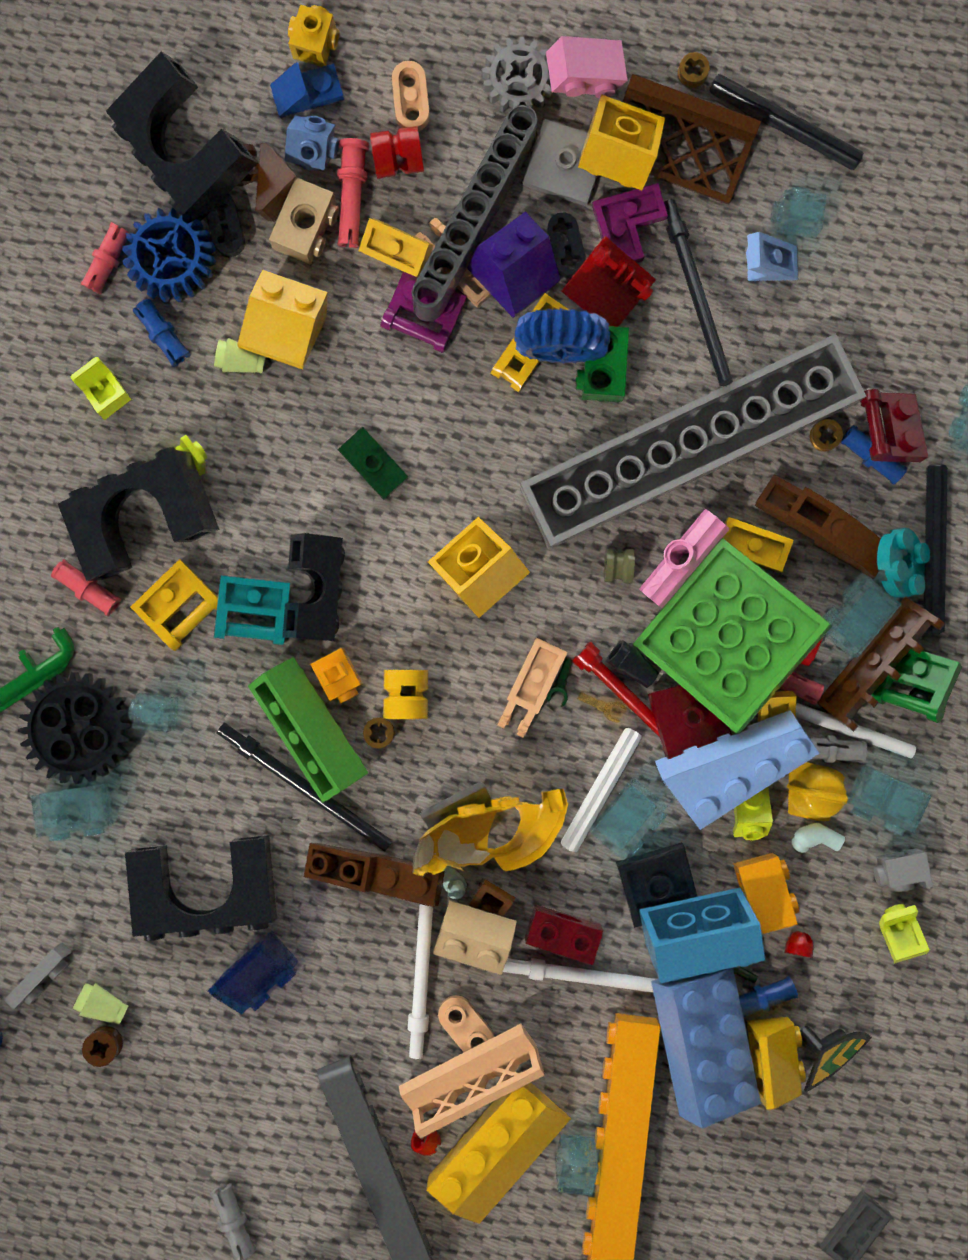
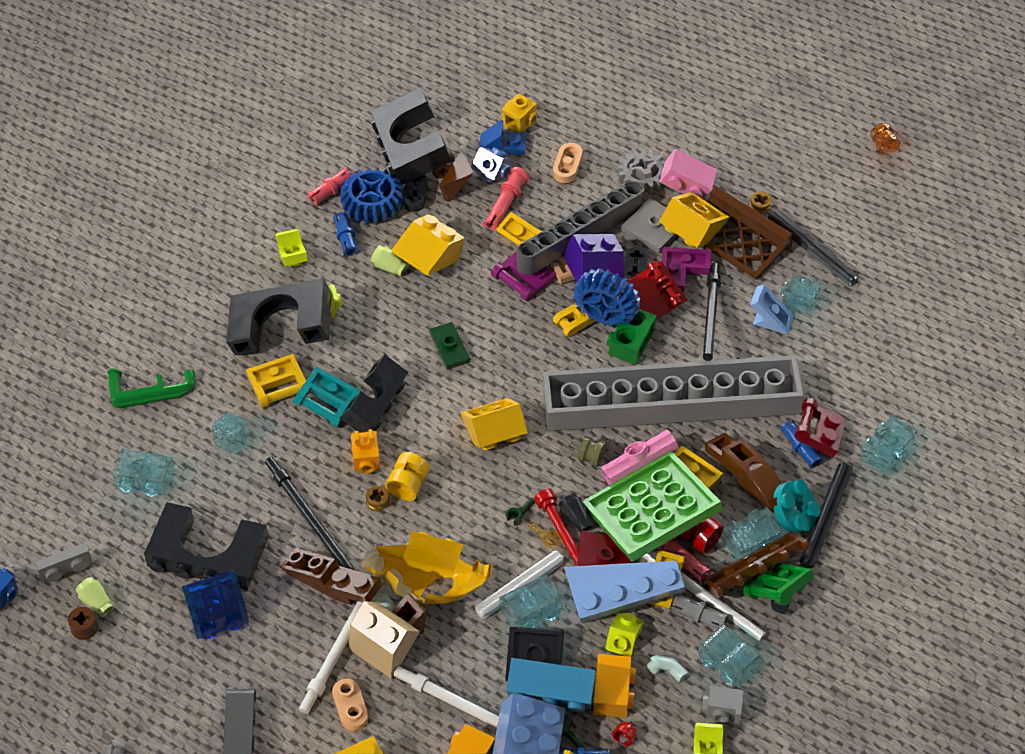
camera: 20 degrees right, 35 degrees down
(46, 737) = (189, 431): black gear -> none
(85, 590) = (222, 352): coral pin -> none
(303, 202) = (467, 203): tan brick -> none
(307, 729) = (329, 474): bright green brick -> none
(397, 152) = (537, 181): red wheel -> none
(470, 1074) = (338, 726): light nougat fence -> none
(533, 683) = (497, 502): light nougat hinge -> none
(563, 934) = (450, 660): dark red brick -> none
(816, 792) = (678, 638): yellow piece -> none
(836, 436) = (769, 430): pearl gold bush -> none

